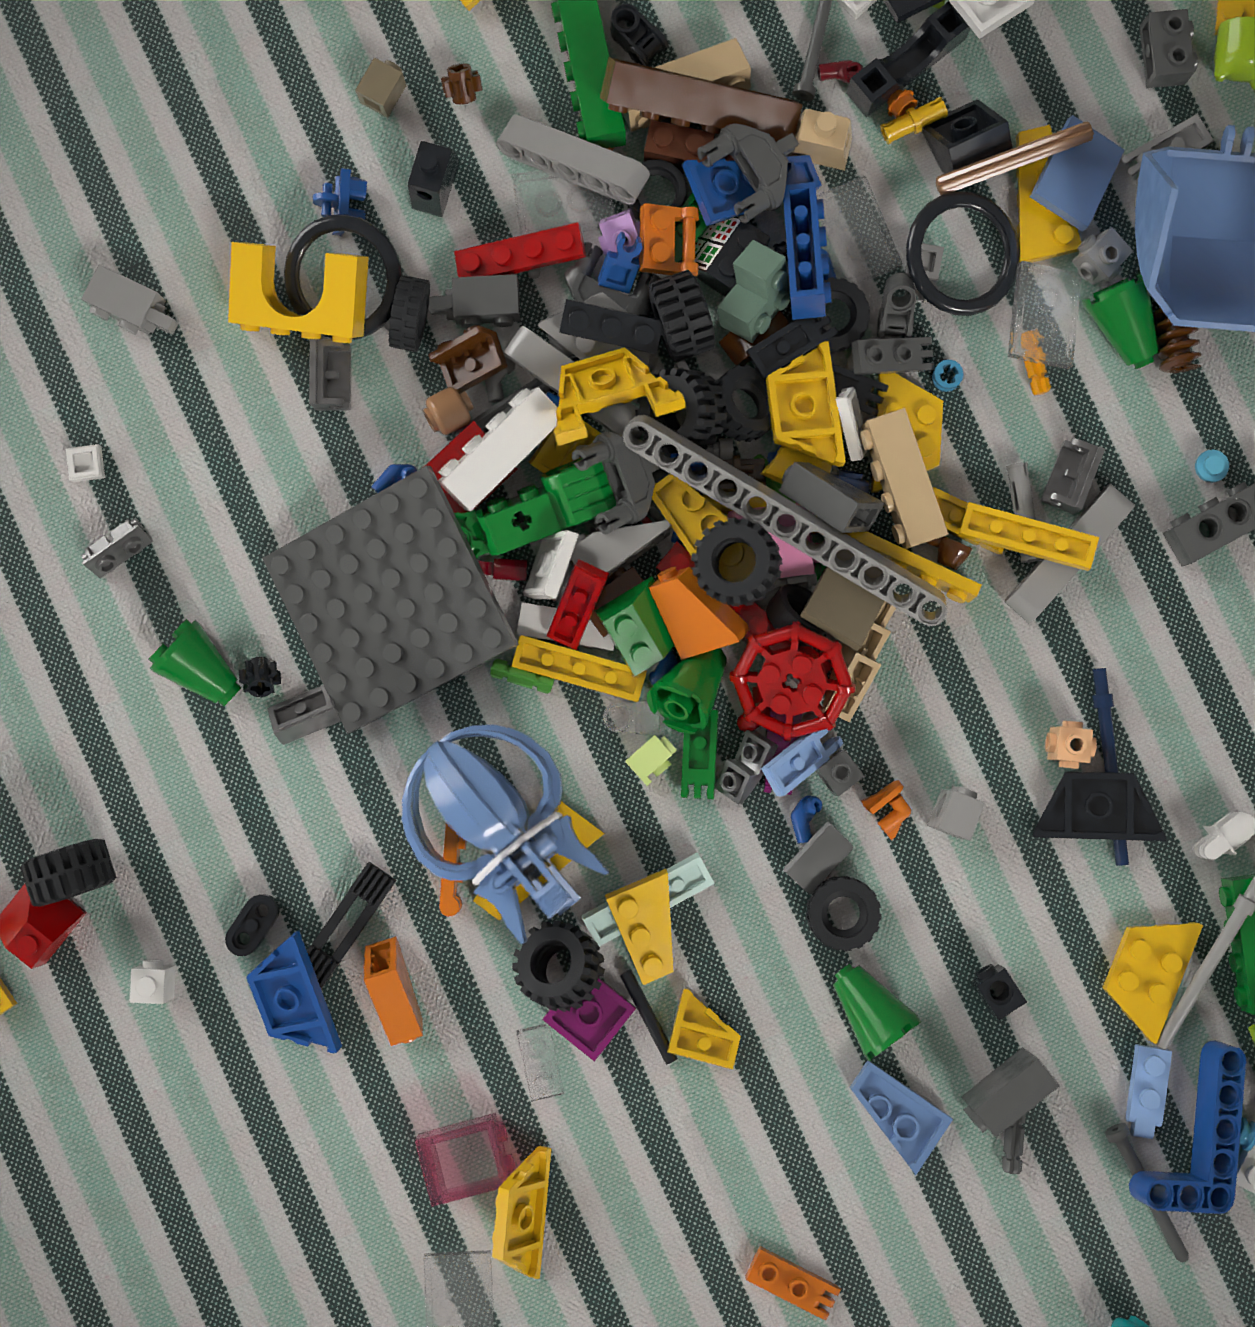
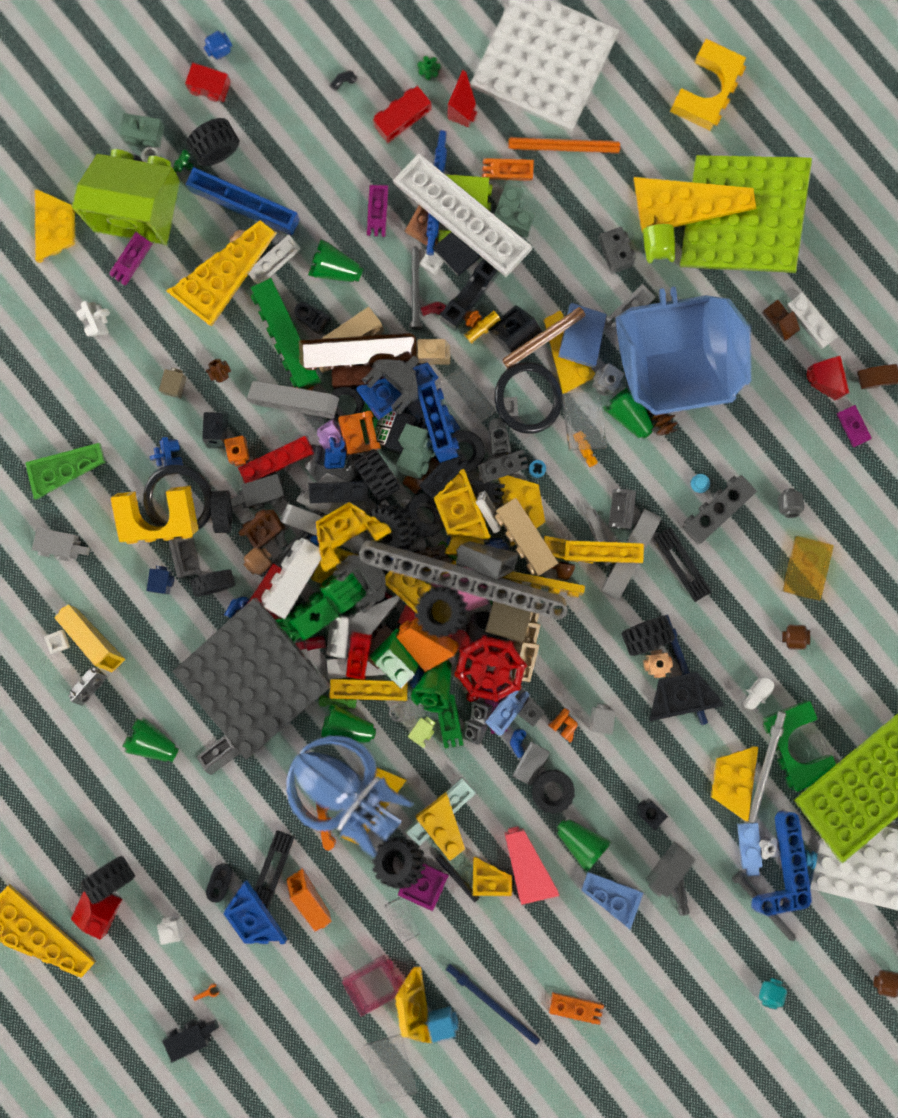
camera: 10 degrees left, 0 degrees up
(137, 1171) = (188, 1039): none -> black hinge
(139, 470) = (89, 639): none -> yellow slope
(162, 181) = (58, 469): none -> bright green wing
(186, 1102) = (206, 993): none -> orange hand
(259, 676) = (188, 740): black gear -> none
(279, 403) = (160, 580): none -> dark blue brick
(365, 426) = (212, 583): none -> black tyre
(459, 222) = (237, 450): none -> orange brick
(530, 715) = (348, 725): none -> green cone
(565, 1253) = (442, 1024): none -> dark azure brick
(616, 1188) = (463, 980): none -> dark blue bar
(771, 1036) = (529, 871): none -> coral slope
(1068, 692) = (648, 635): none -> black tyre
(1164, 637) = (697, 588): none -> black container
(1174, 1091) = (765, 853): none -> white plate

